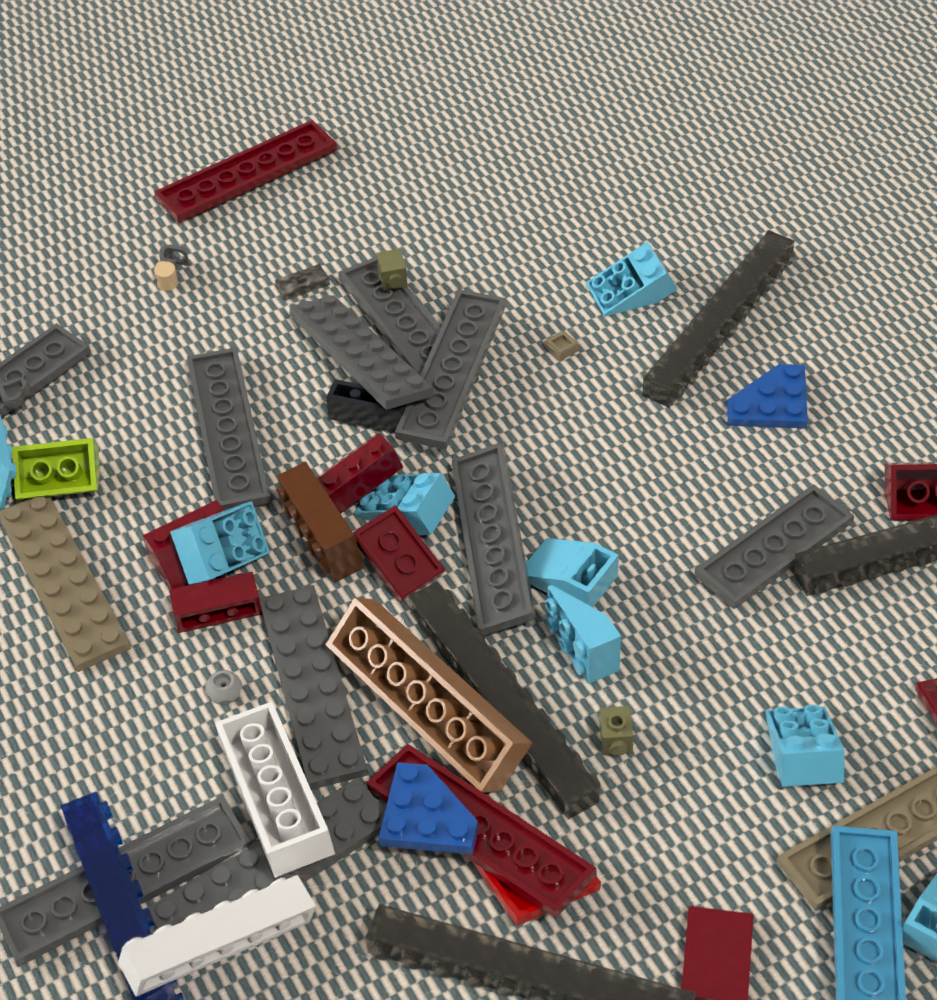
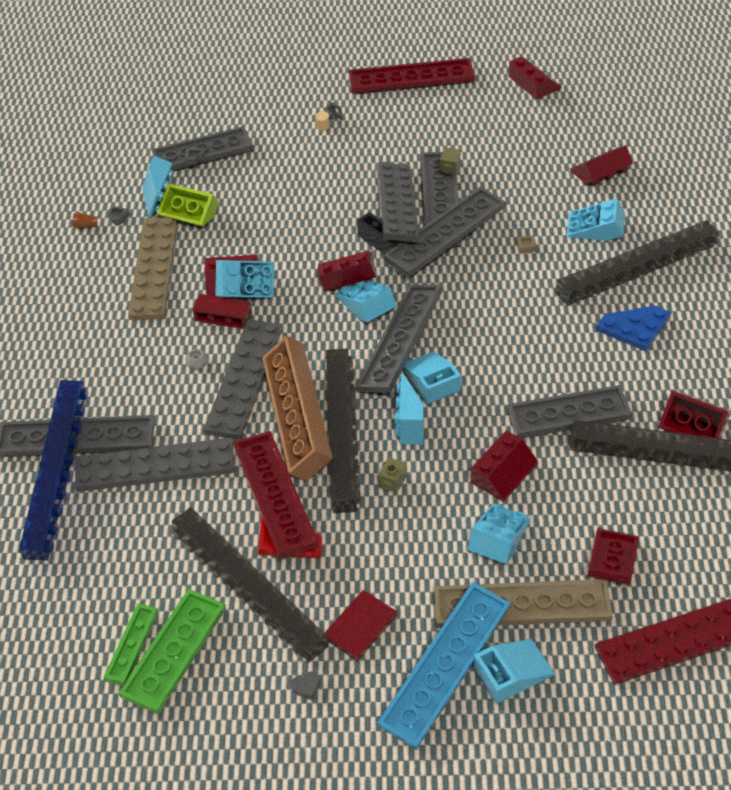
camera: 30 degrees right, 0 degrees up
(215, 934) = (95, 482): white brick -> none
(228, 429) = (296, 219): dark grey plate -> none
(274, 789) = (177, 421): white brick -> none
(302, 282) = (398, 152): clear smoke tile -> none
(319, 522) = (304, 289): reddish brown brick -> none
(398, 553) = (338, 323): dark red tile -> none
(413, 121) = (532, 78): none -> dark red slope
(426, 814) = (248, 471): blue plate -> none
(587, 205) = (603, 165): none -> dark red slope
(748, 654) = (503, 466): none -> dark red slope

